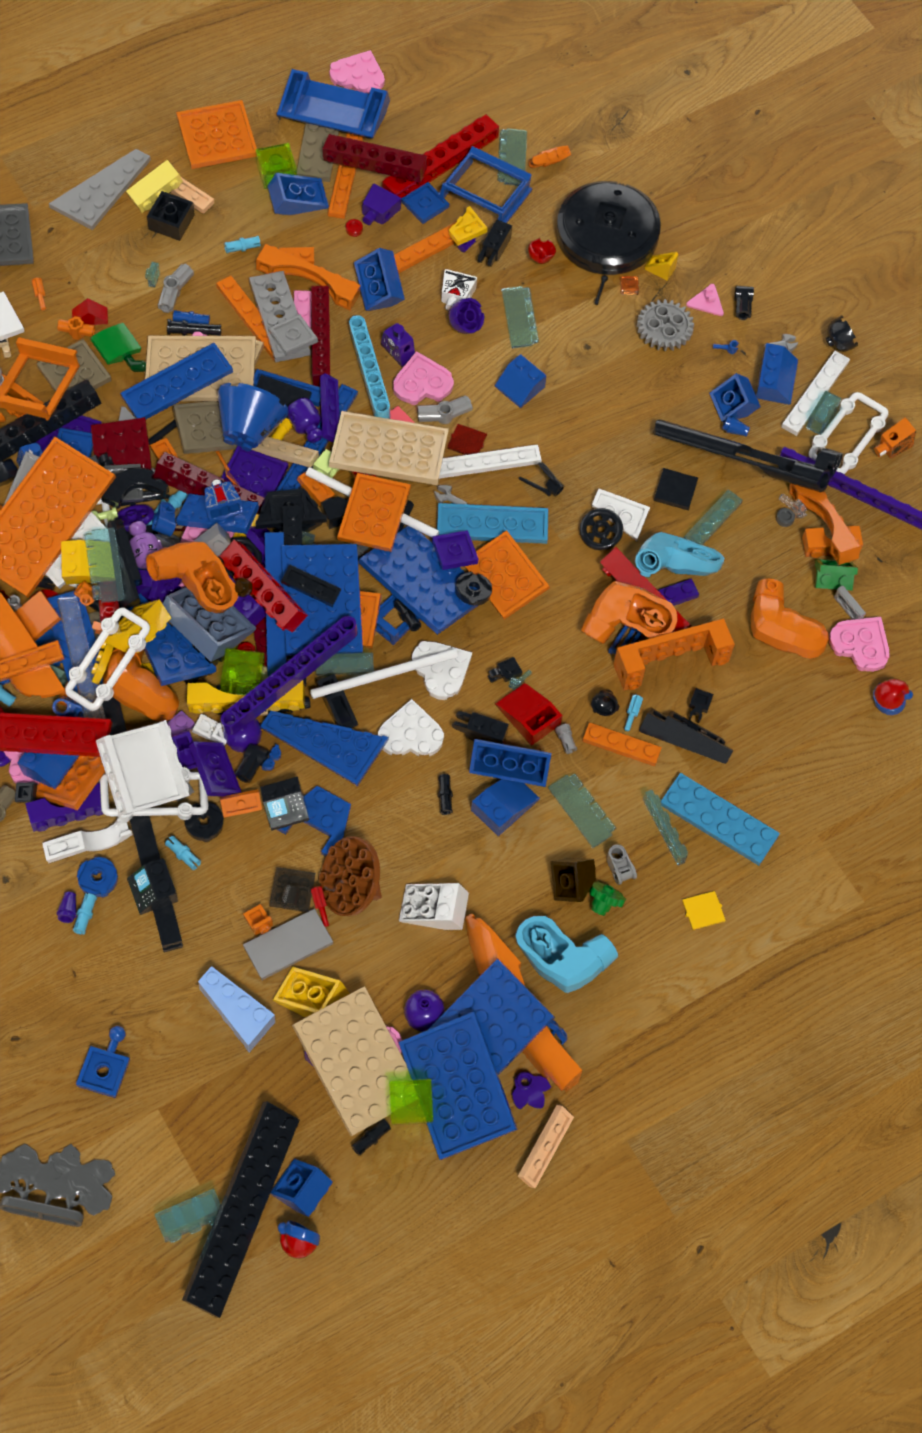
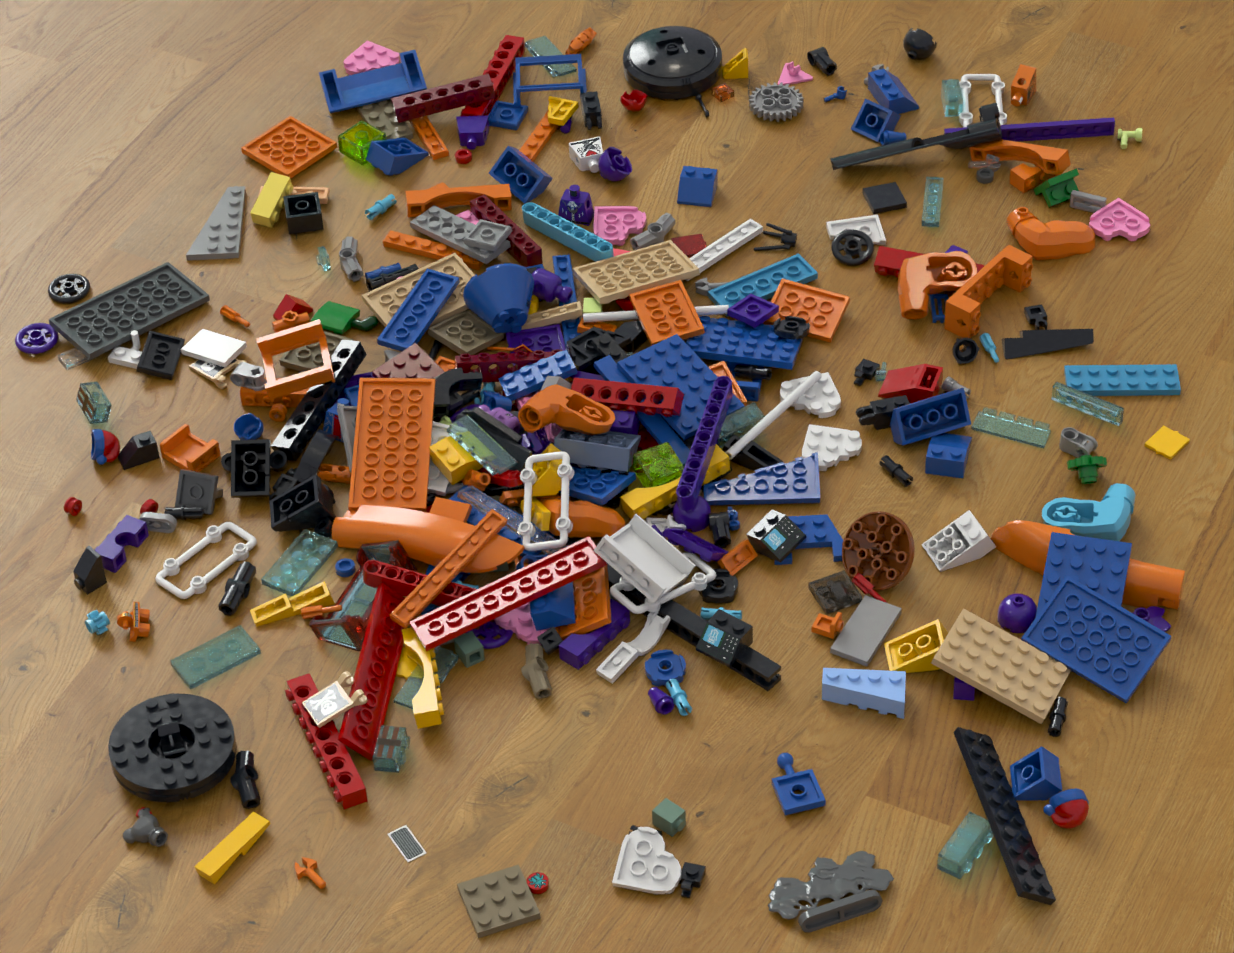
camera: 25 degrees left, 20 degrees down
(222, 501) = (539, 358): blue torso -> none
(243, 587) = (612, 402): dark brown plate -> none
(311, 585) = (668, 374): black plate -> none
(329, 406) = (555, 267): dark purple plate -> none
(411, 1102) = (1072, 666): clear neon green brick -> none
(520, 316) = (654, 150): clear light blue windscreen -> none
(545, 1146) = (1199, 647): light nougat plate -> none
(572, 878) = (1052, 465): dark brown slope -> none
(622, 744) = (1001, 372): orange plate -> none
(677, 556) = (932, 232): medium azure piece -> none
(811, 397) = (932, 91): white plate -> none
(891, 696) = (1174, 241): red piece -> none

